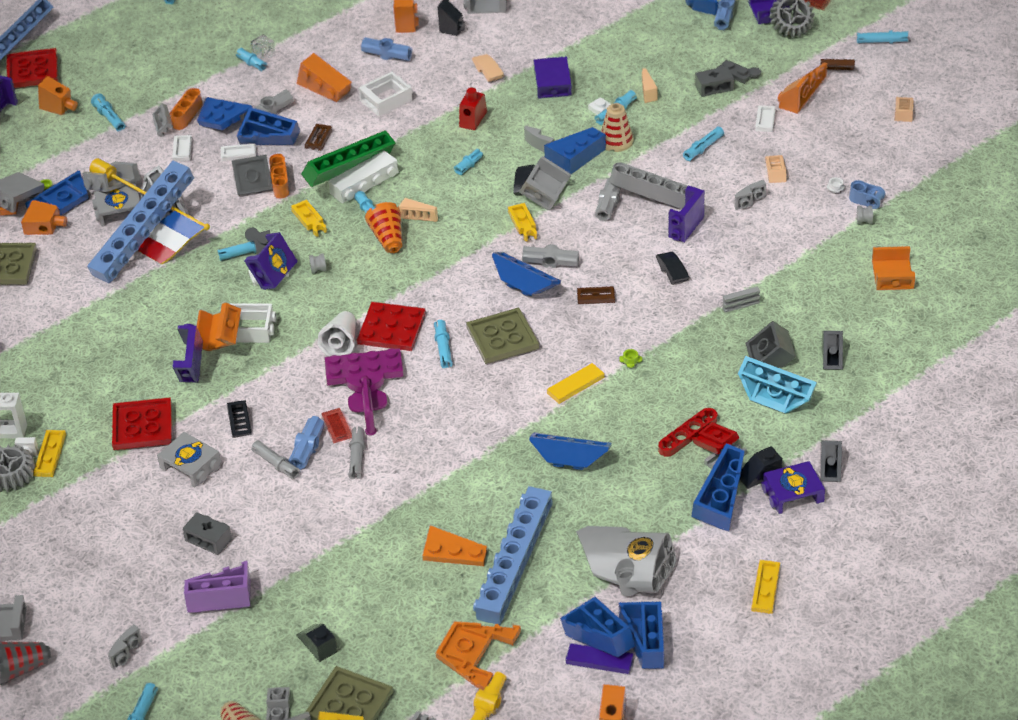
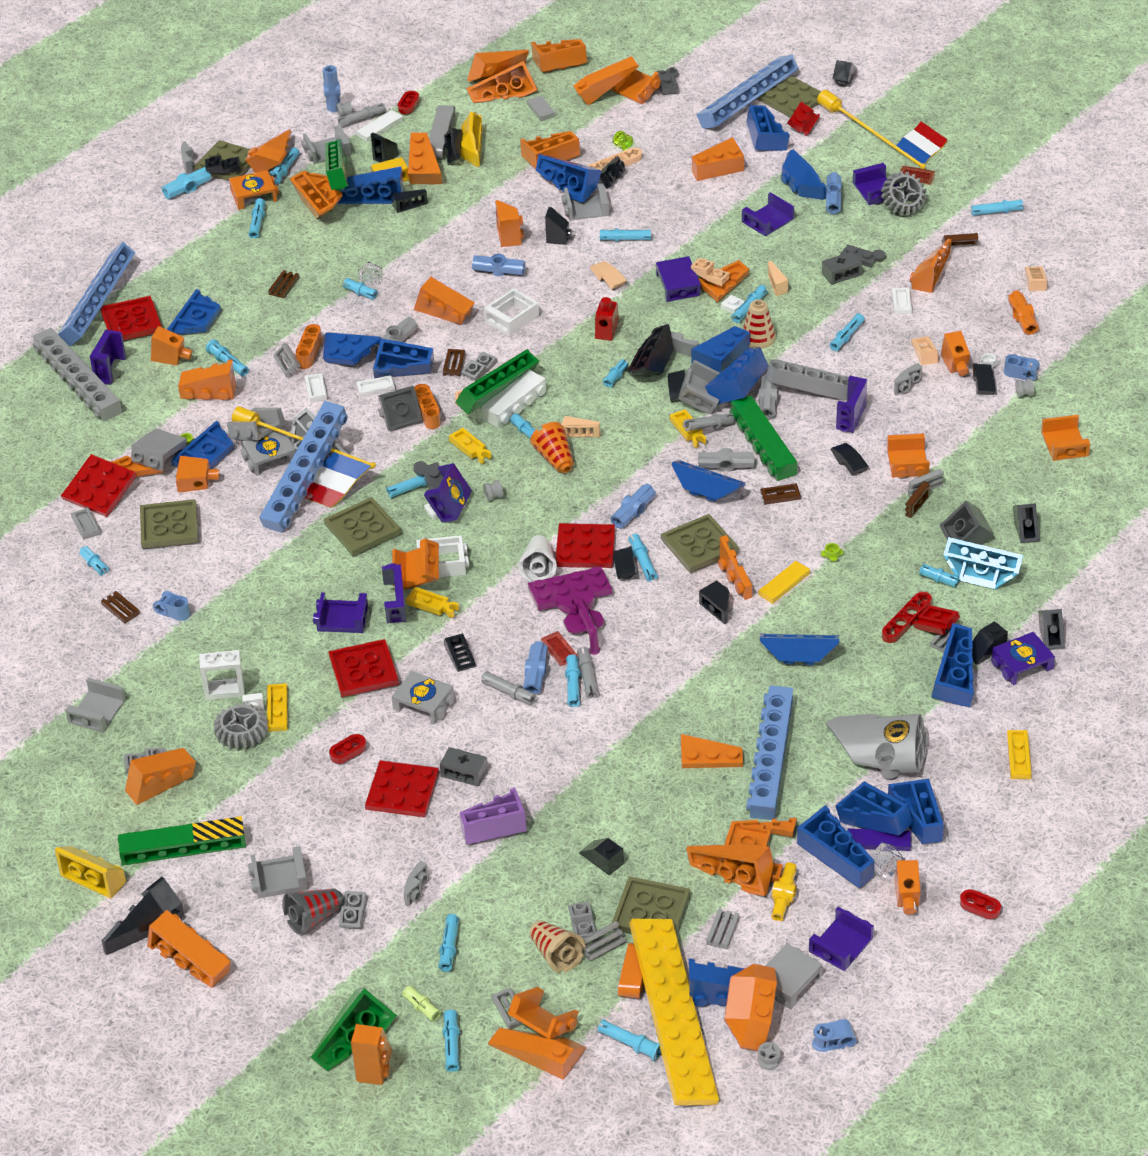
camera: 10 degrees left, 0 degrees up
(58, 666) = (352, 909): none -> light grey slope
(82, 134) = (208, 383): none -> orange wedge
(91, 70) = (195, 315): none -> blue wing
(102, 502) = (345, 749): none -> red plate
(137, 369) = (341, 614): none -> dark purple panel
(143, 548) = (402, 788): none -> red plate
(182, 49) = (281, 282): none -> reddish brown tile
(183, 285) = (362, 526): none -> olive plate
(226, 366) = (431, 602): none -> yellow plate
(341, 452) = (572, 674): none -> medium azure pin
(346, 138) = (480, 366): none -> light grey slope
(423, 347) = (624, 563): none -> black slope
(447, 292) = (633, 506): none -> medium blue piece
(449, 666) = (737, 863): none -> orange wedge
(502, 394) = (715, 600): none -> black slope
(509, 146) = (653, 353): none -> black wedge
(514, 31) = (625, 234): none -> medium azure pin
(527, 367) = (734, 573): none -> orange wing
(543, 217) = (706, 422): none -> light grey pin
(549, 660) = (835, 847): none -> blue wedge
(581, 72) = (706, 270): none -> light nougat slope
(582, 176) = (738, 377): none -> blue wedge
(593, 239) = (763, 438): none -> green brick
(594, 678) = (885, 860): none -> clear brick
(597, 82) = (737, 273): none -> orange wing
(659, 27) = (769, 217): none -> dark purple panel
(728, 315) = (917, 499): none -> reddish brown tile
(730, 269) = (907, 455): none -> orange panel
(731, 393) = (939, 575): none -> medium azure pin
(805, 181) = (955, 353): none -> orange torso
(826, 202) = (984, 379): none -> black slope
(882, 141) = (1023, 312): none -> orange piece

